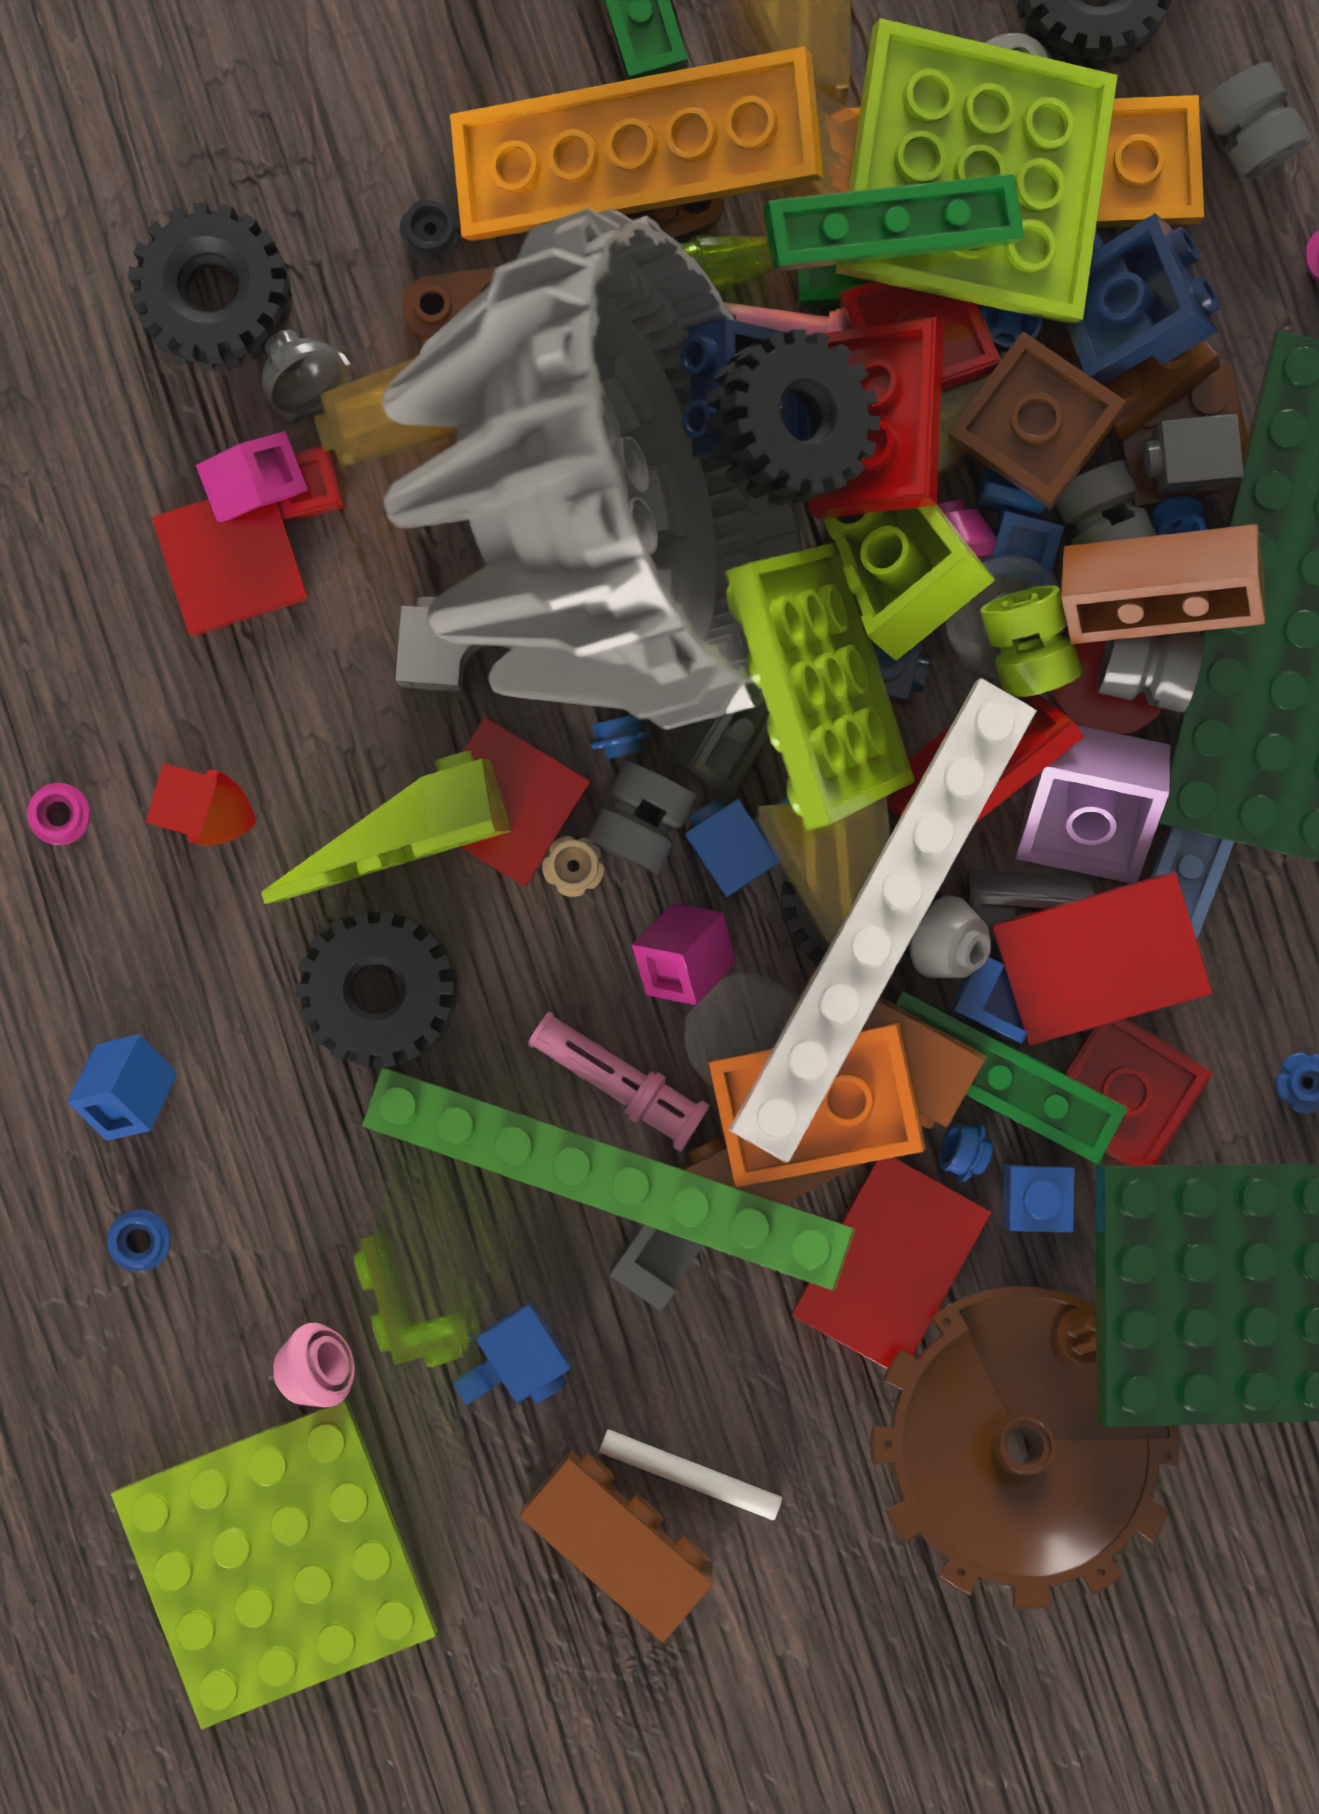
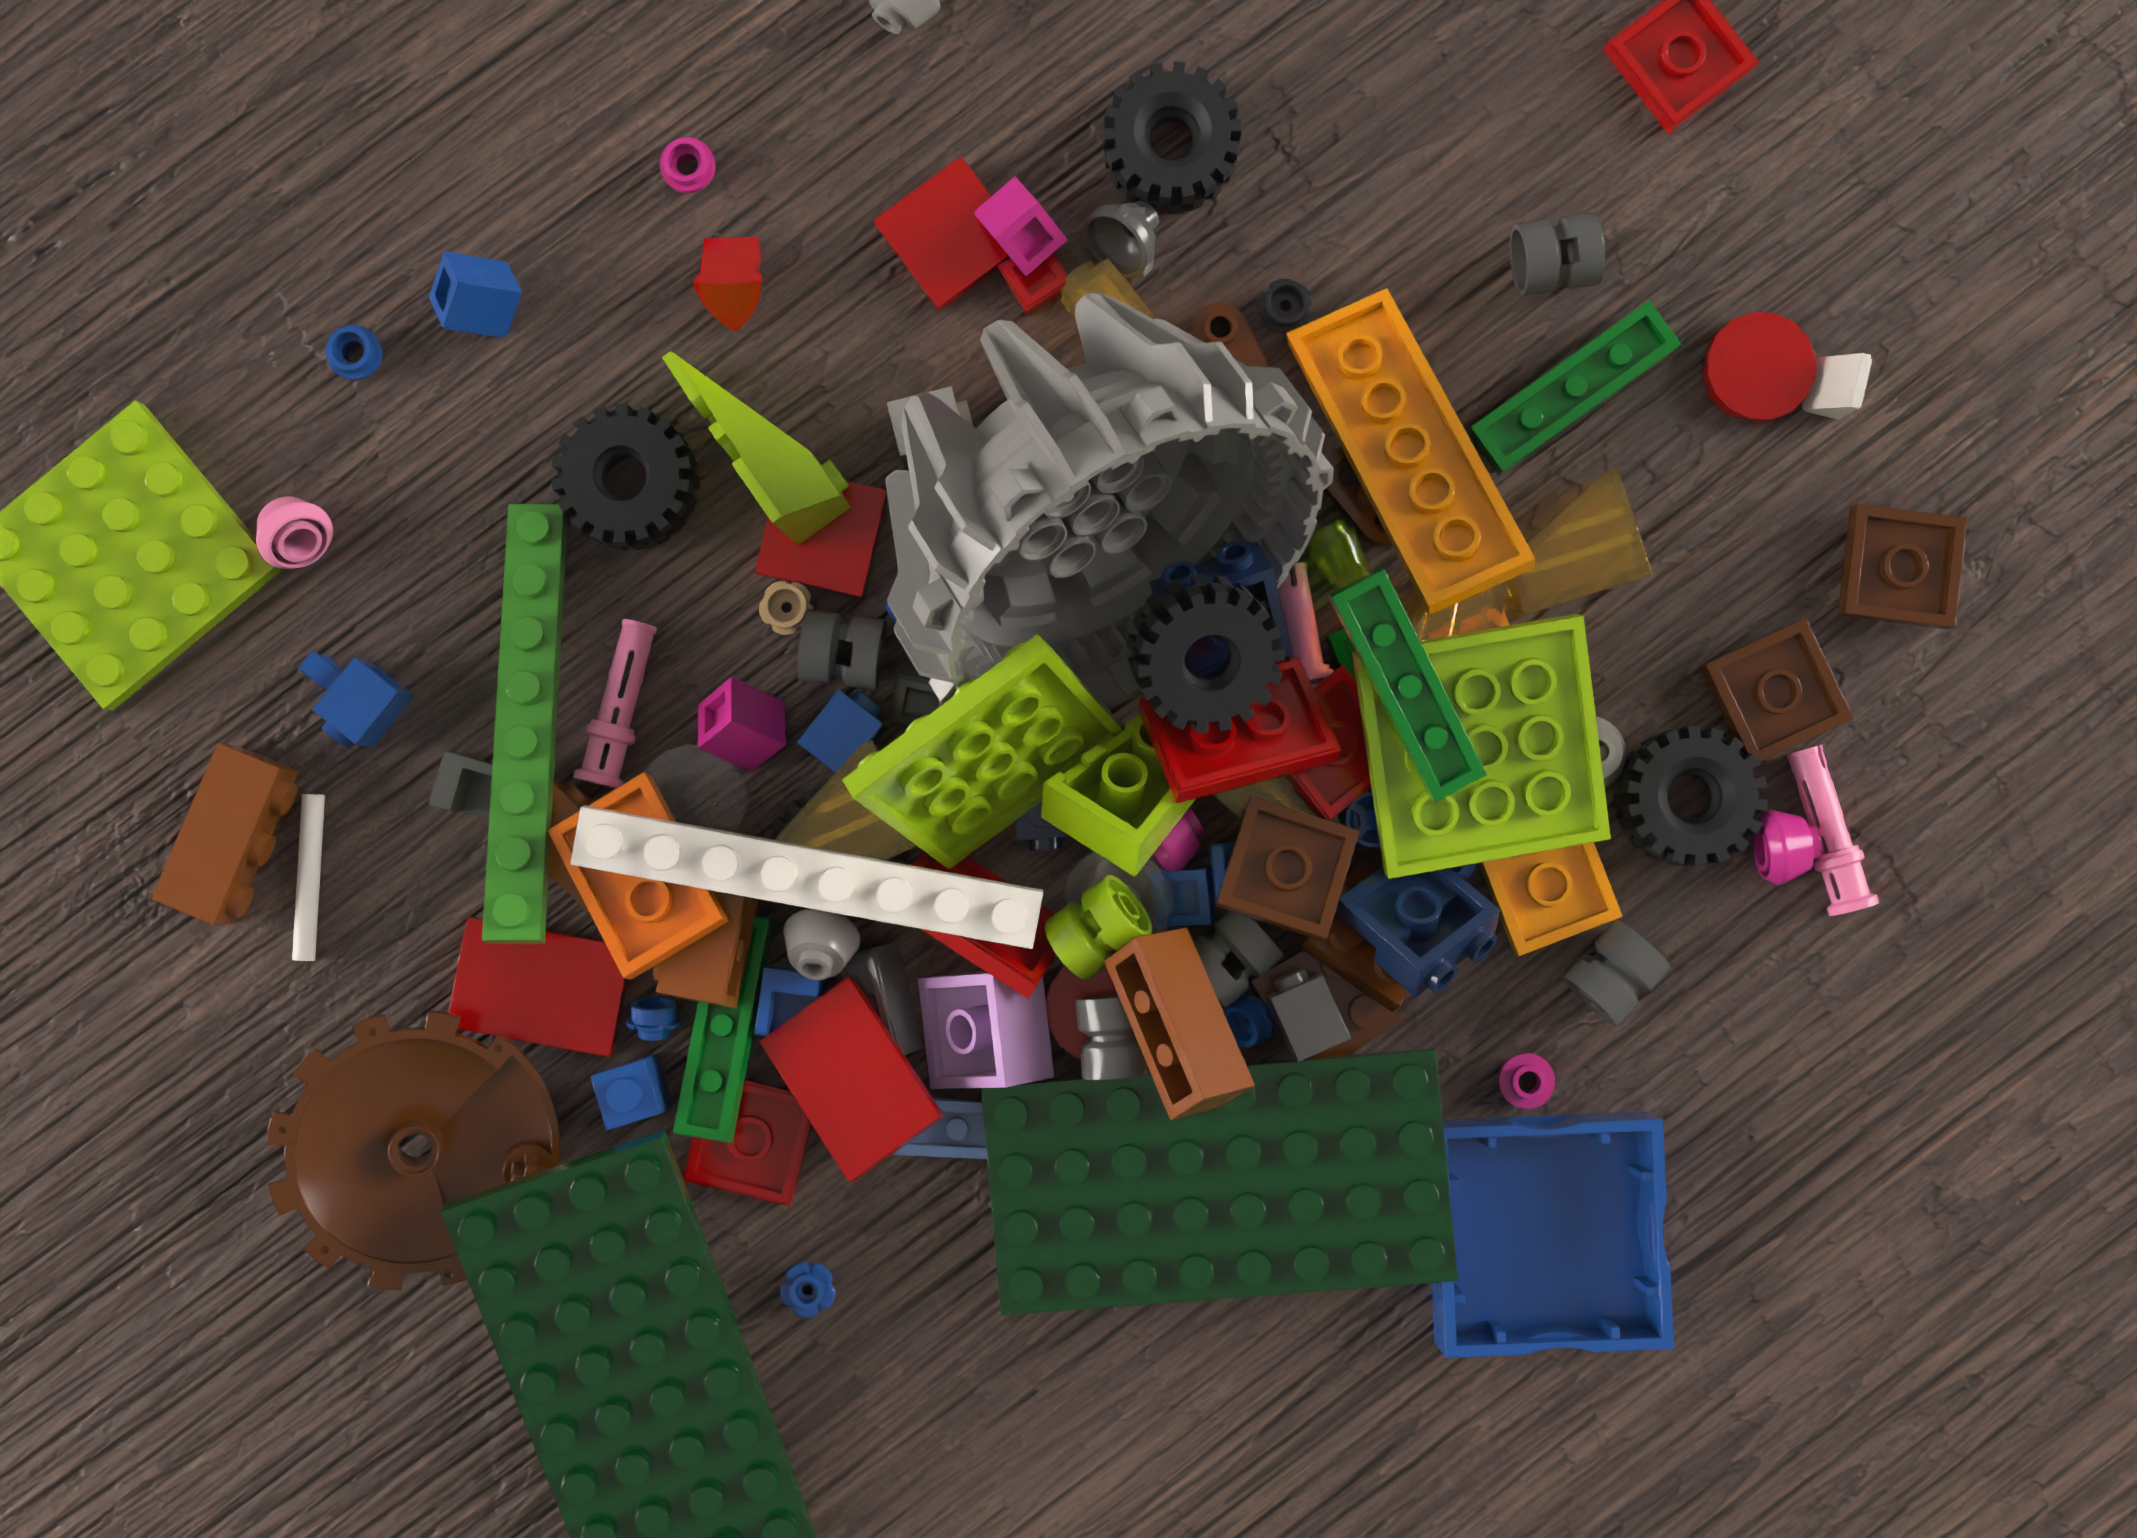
camera: 70 degrees right, 0 degrees up
(434, 1340) = (343, 586): clear neon green bracket -> none

